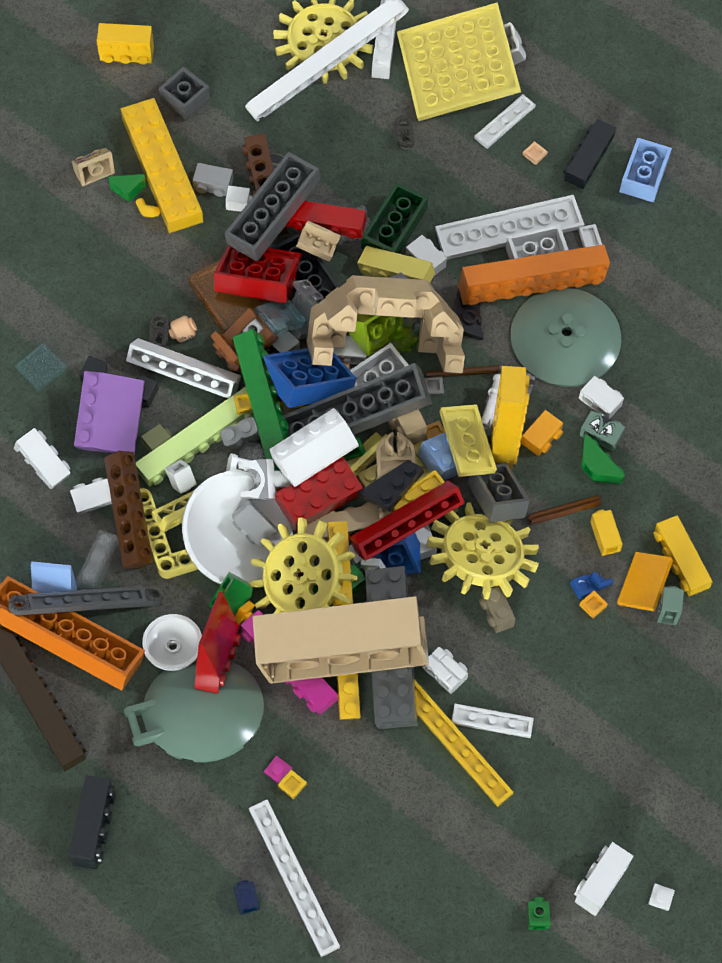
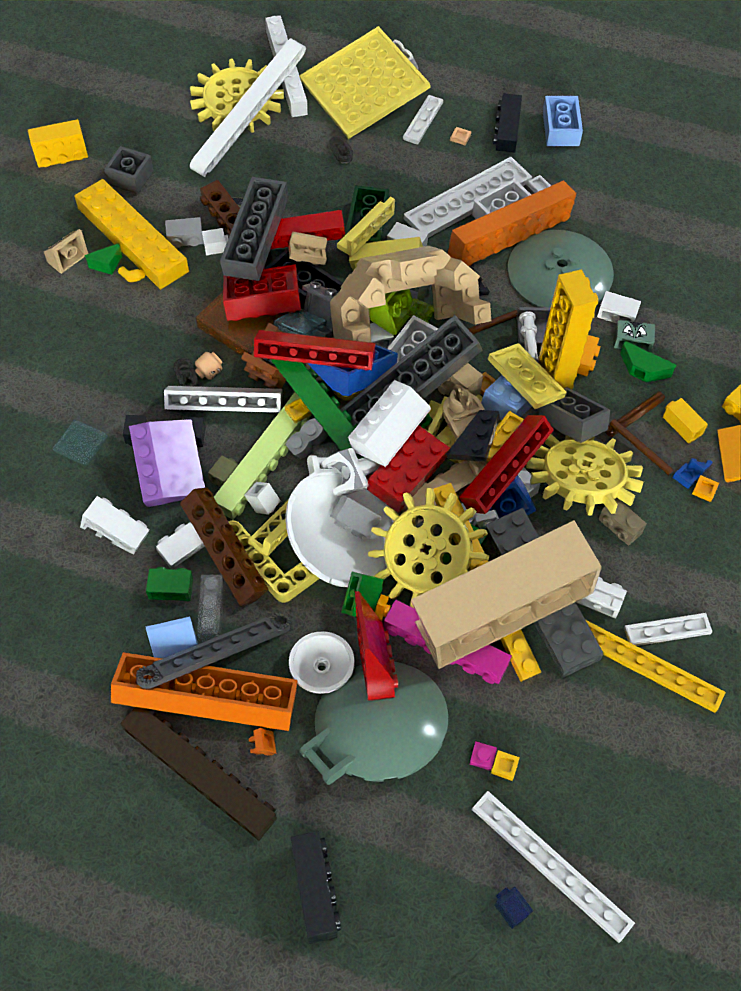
camera: 20 degrees left, 5 degrees down
(71, 528) = (169, 584): none -> green brick
(98, 692) = (263, 741): none -> orange tile
(274, 354) = (314, 350): none -> red brick
(386, 234) = (367, 227): none -> light yellow fence
(552, 544) = (641, 447): none -> reddish brown bar

